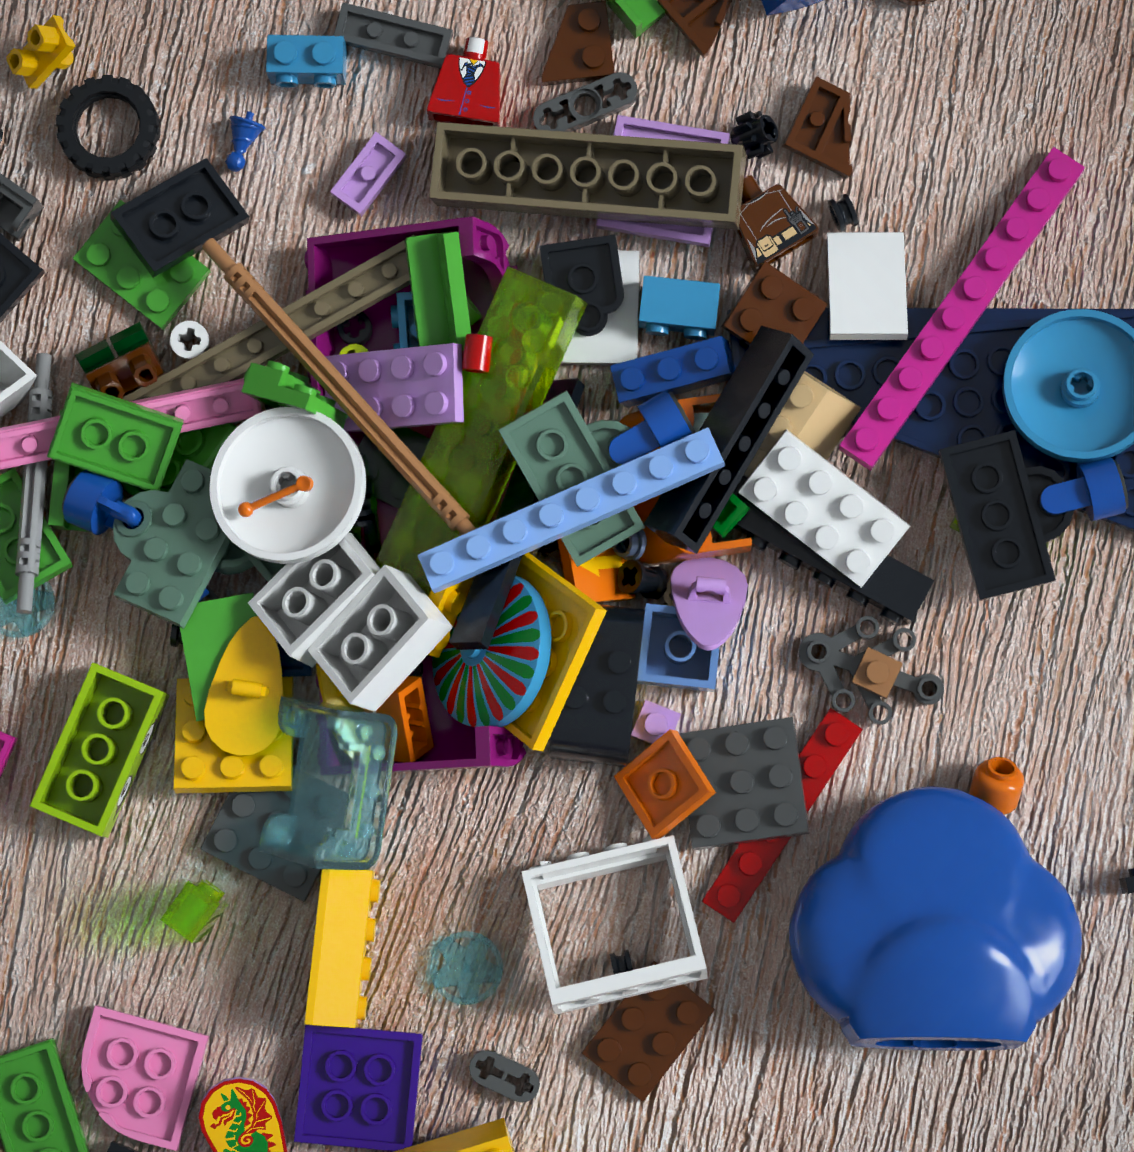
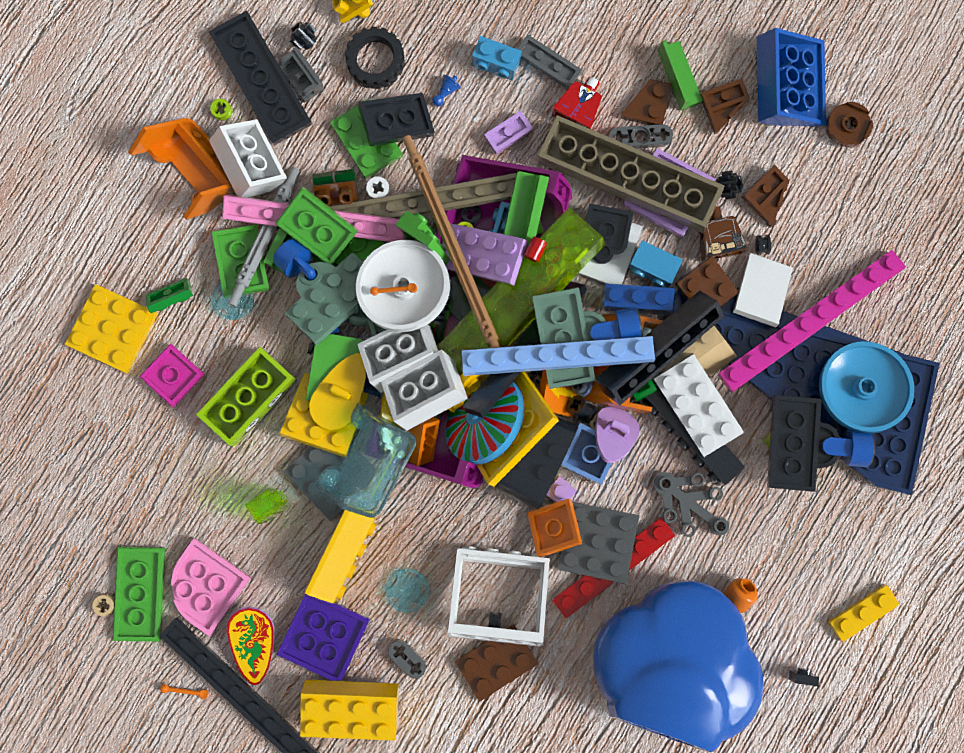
camera: 10 degrees right, 0 degrees up
(876, 673) = (694, 507): medium nougat plate -> none

